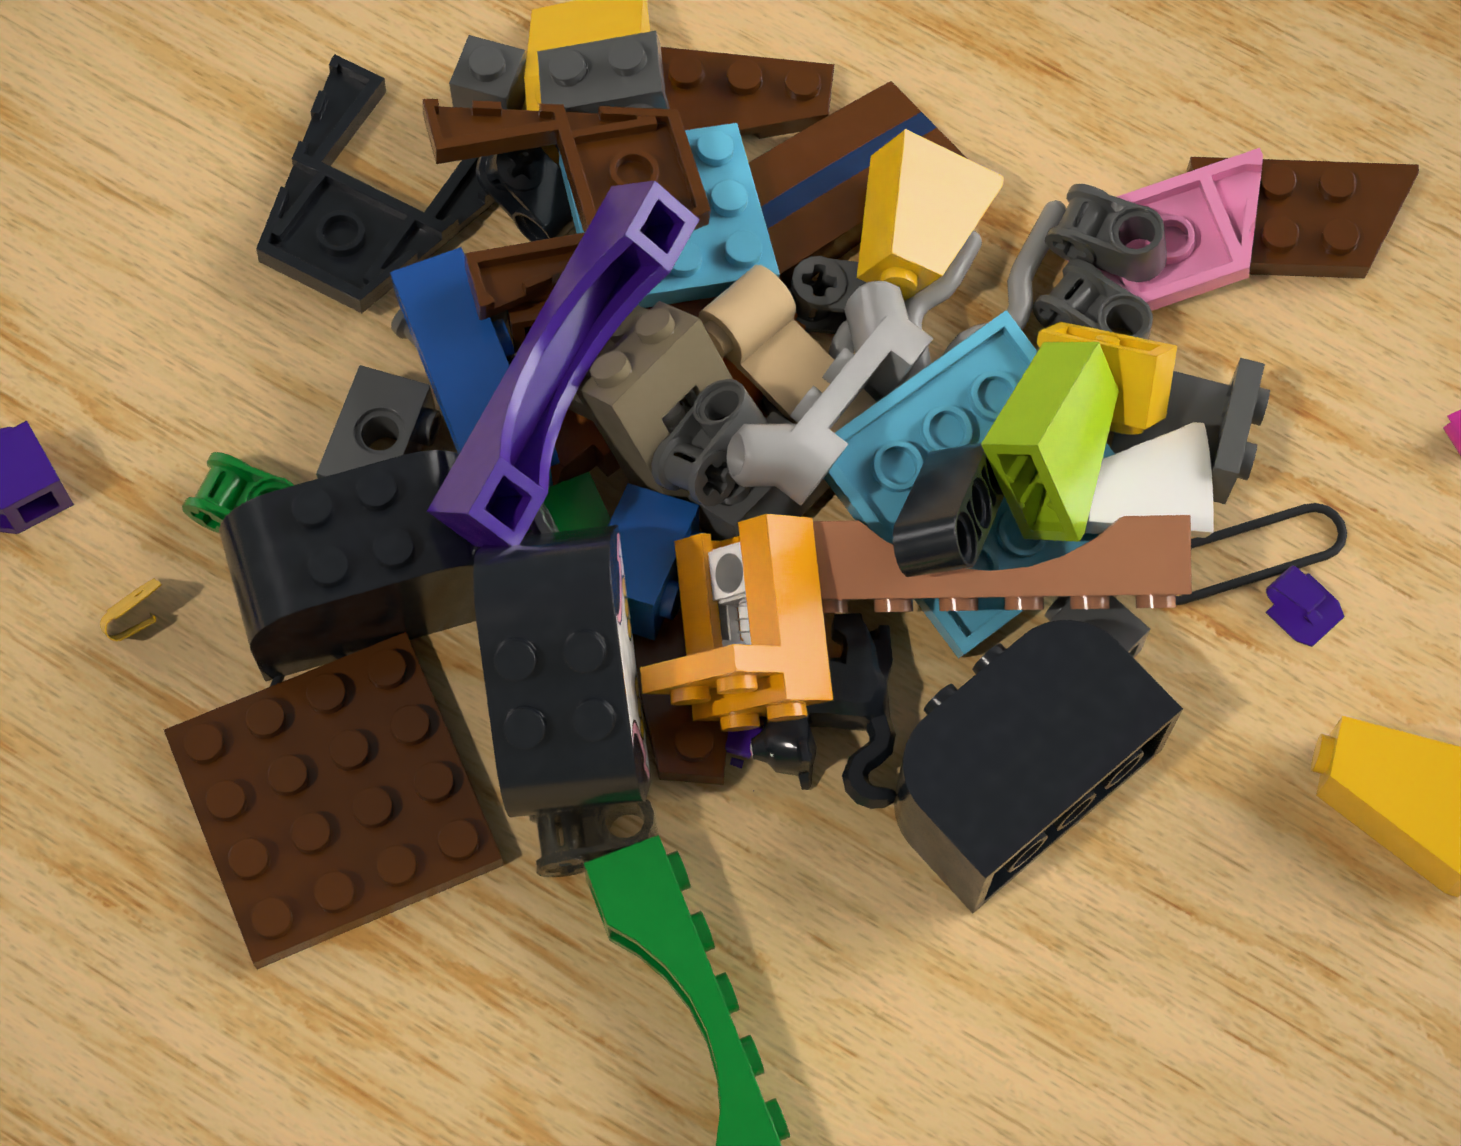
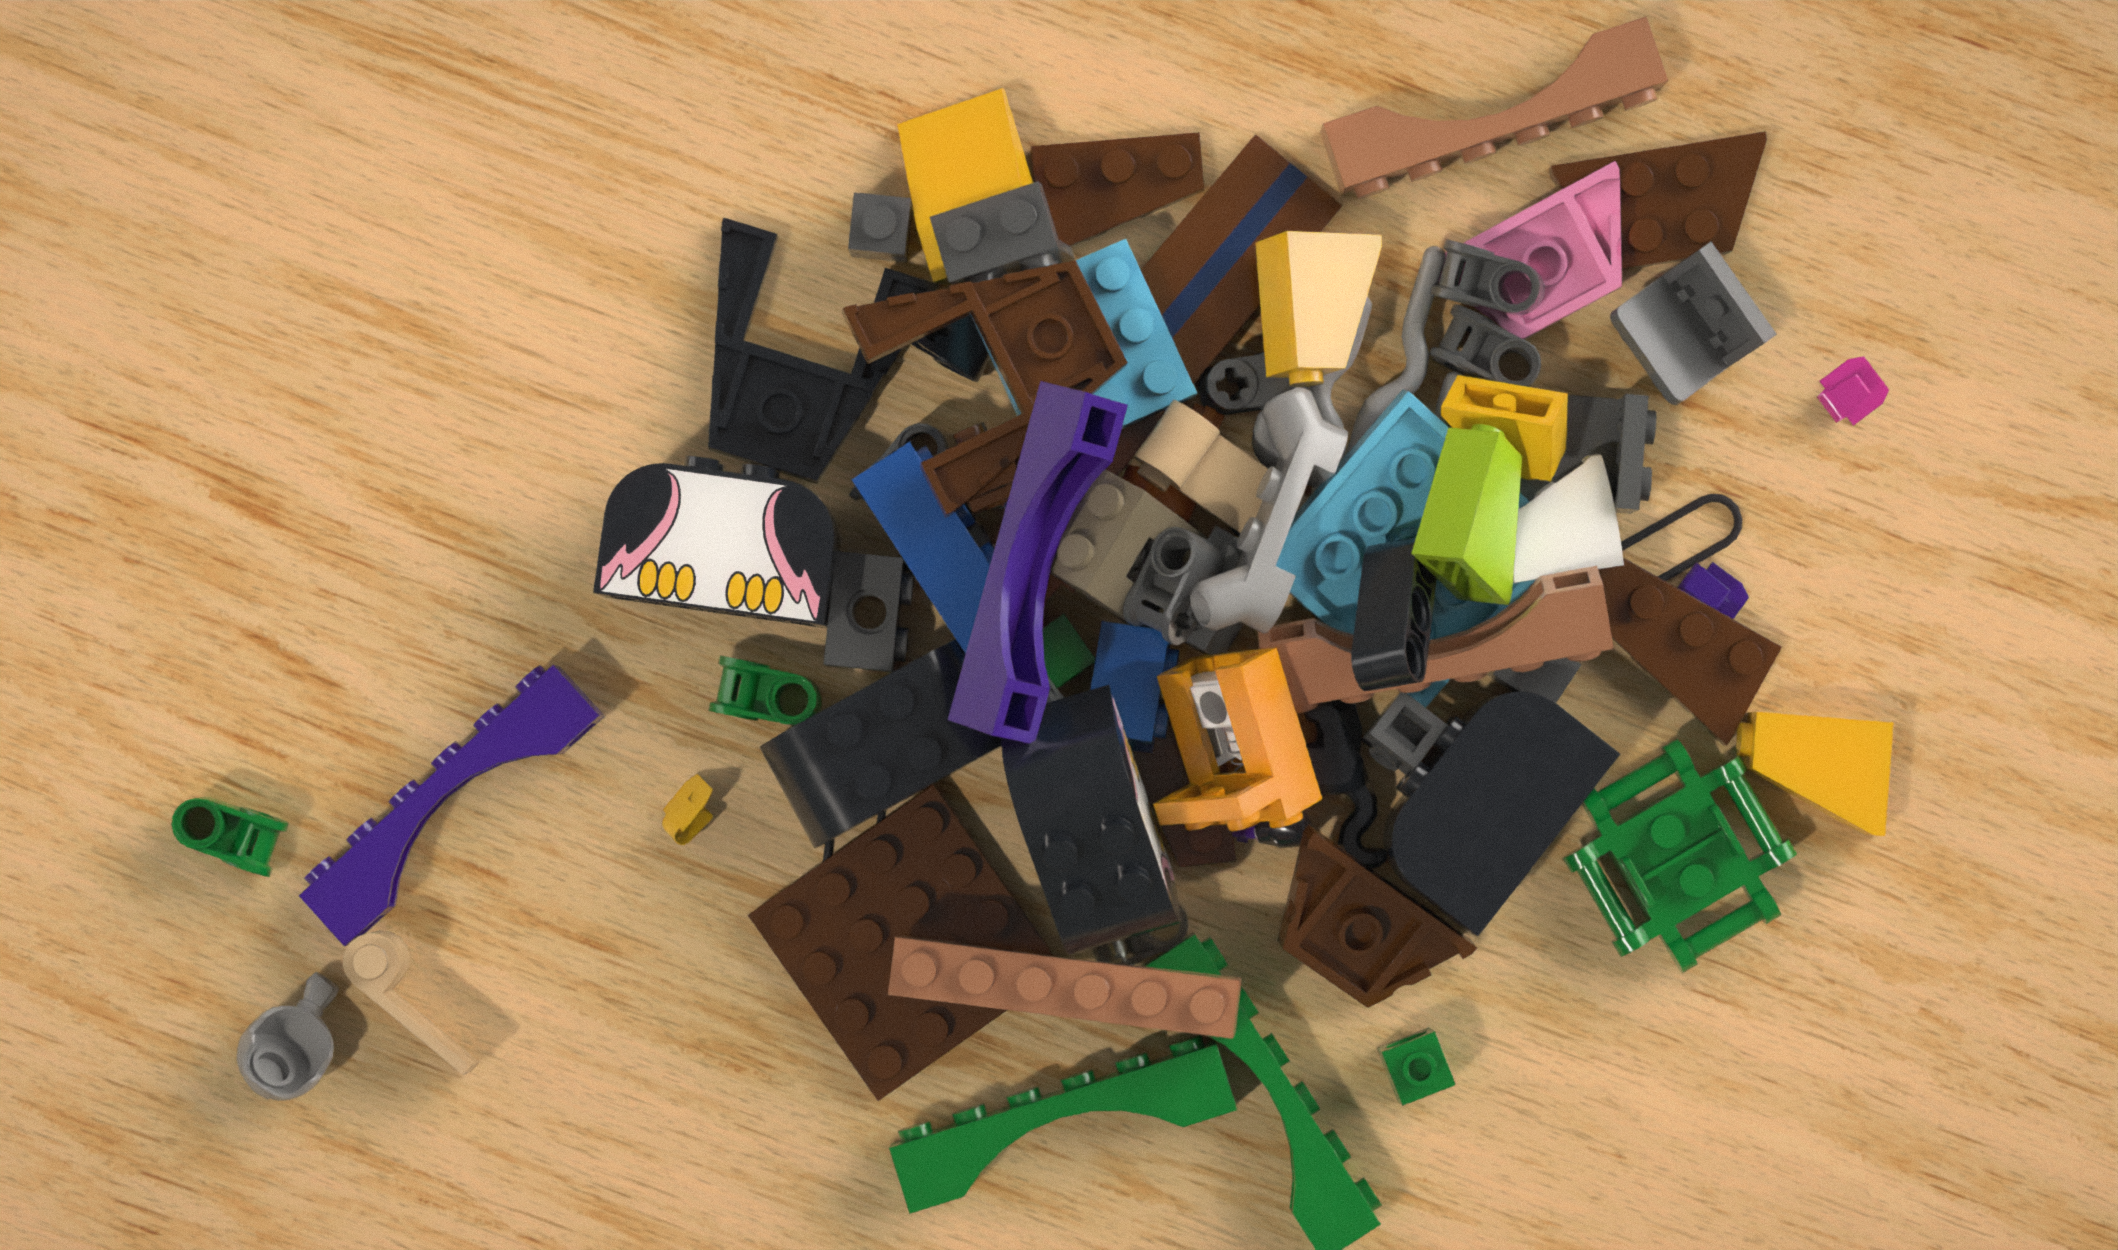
camera: 10 degrees left, 20 degrees up
(231, 333) = (718, 542): none -> brick
(317, 1044) = (947, 1160): none -> green arch
(578, 874) = (1065, 986): none -> nougat arch
(851, 867) = (1360, 925): none -> reddish brown wing
(886, 1042) = (1416, 1066): none -> green brick
(922, 672) = (1399, 741): none -> dark grey brick
(1023, 106) = (1383, 144): none -> nougat arch
(1232, 865) = (1679, 856): none -> green brick
(1270, 647) = (1687, 647): none -> reddish brown wing
(1323, 320) = (1691, 324): none -> dark grey bracket

